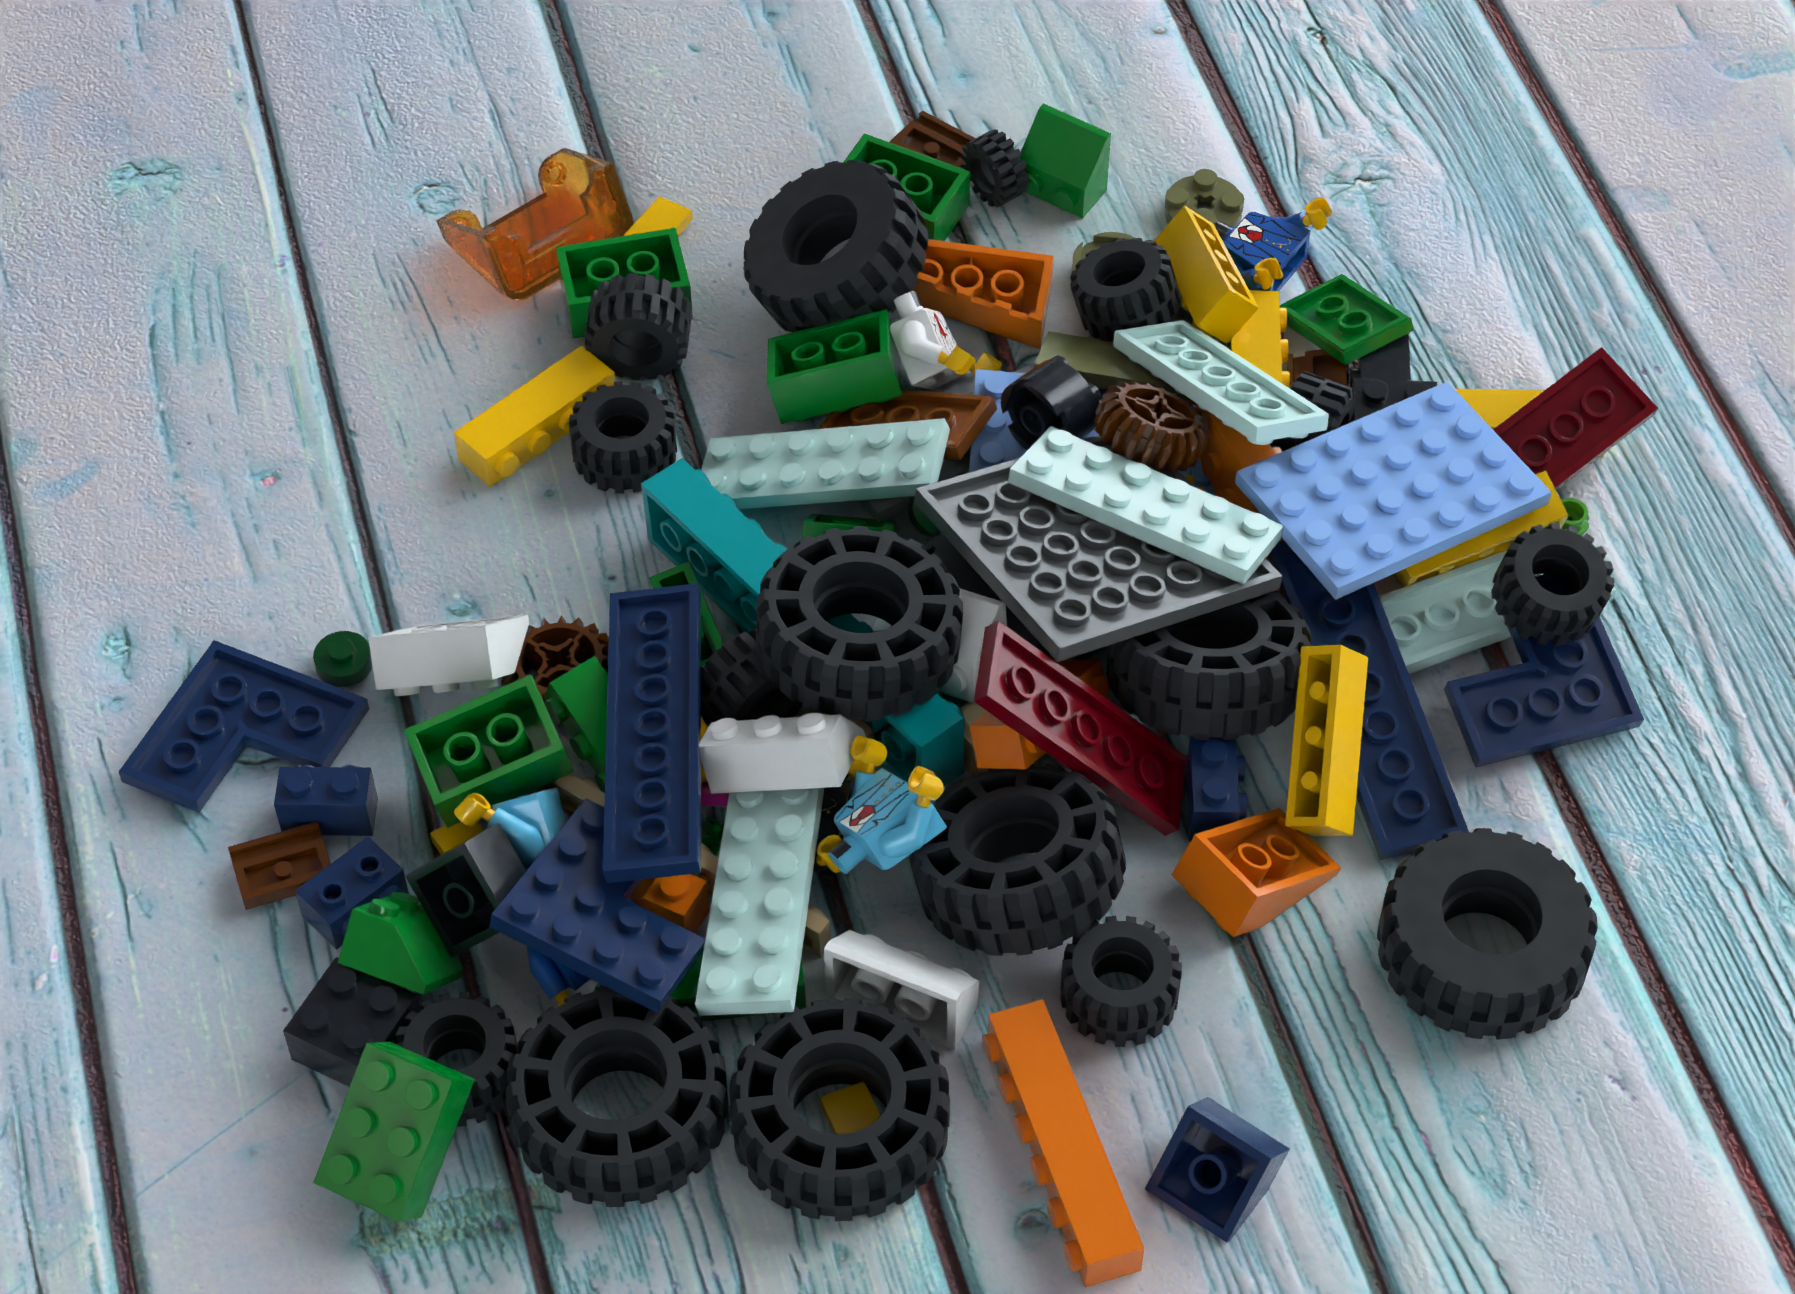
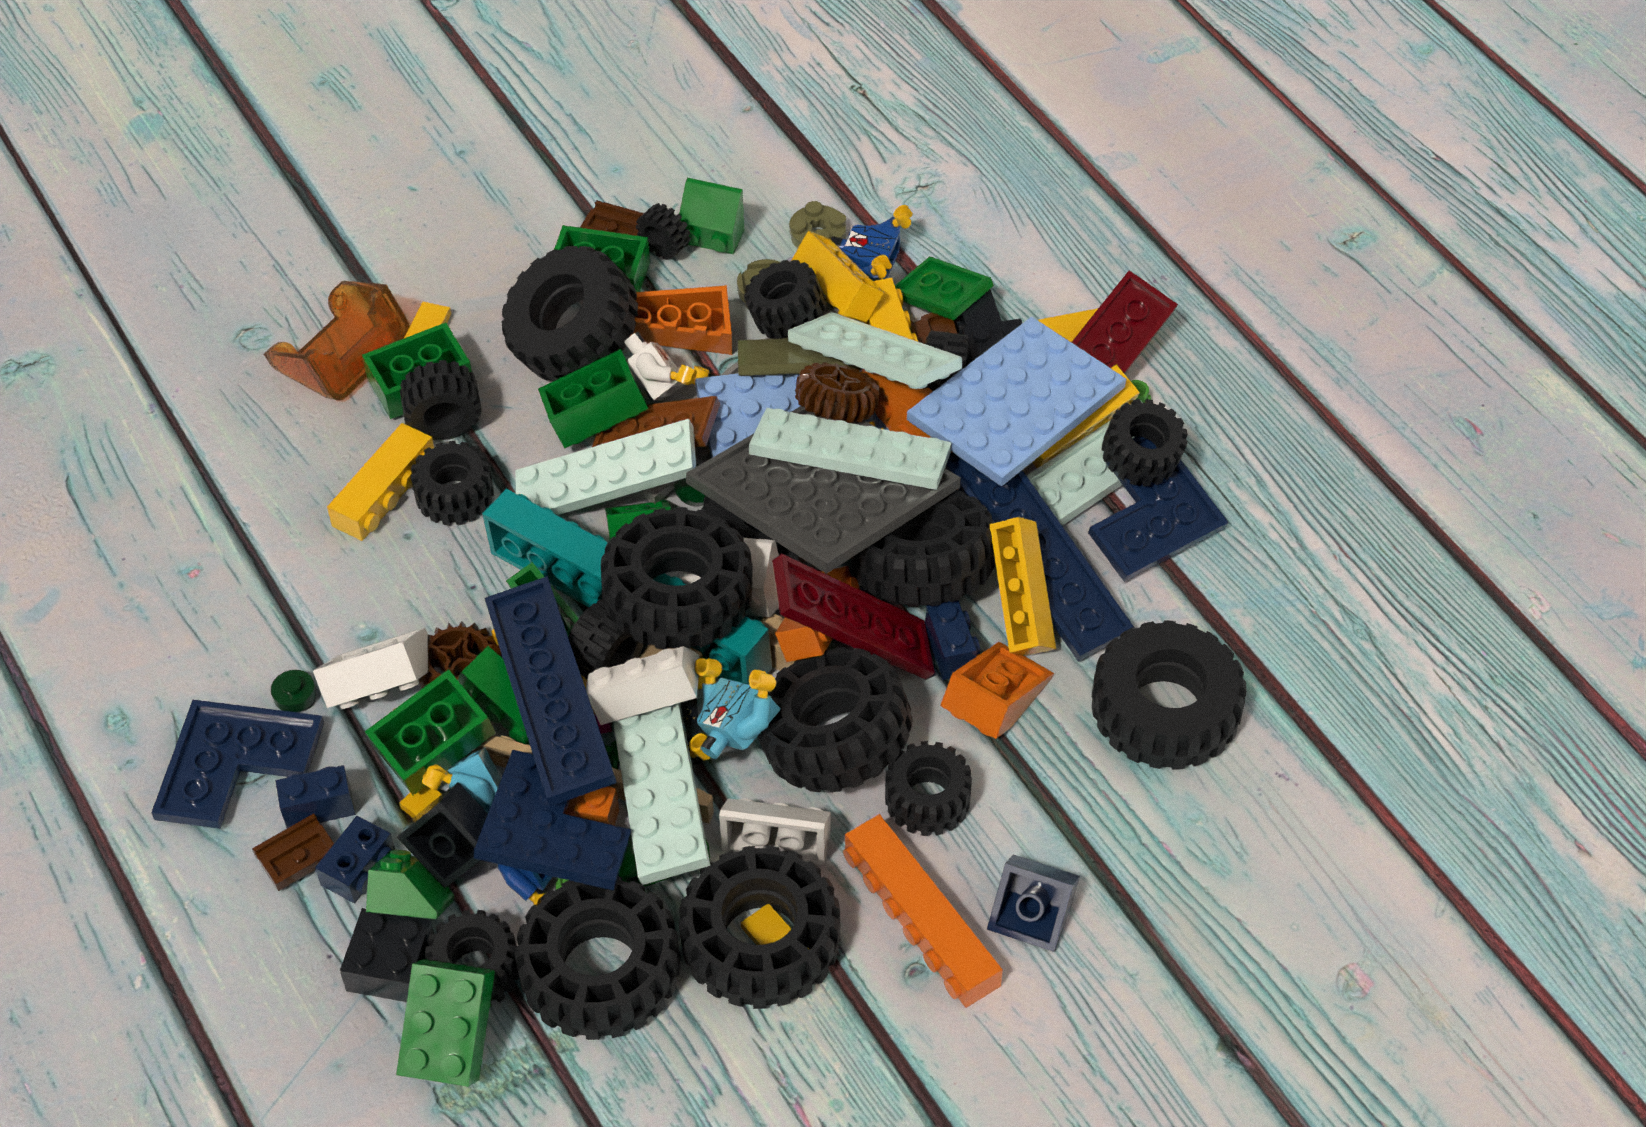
camera: 15 degrees left, 0 degrees up
(1048, 397) = (759, 387): black brick -> none

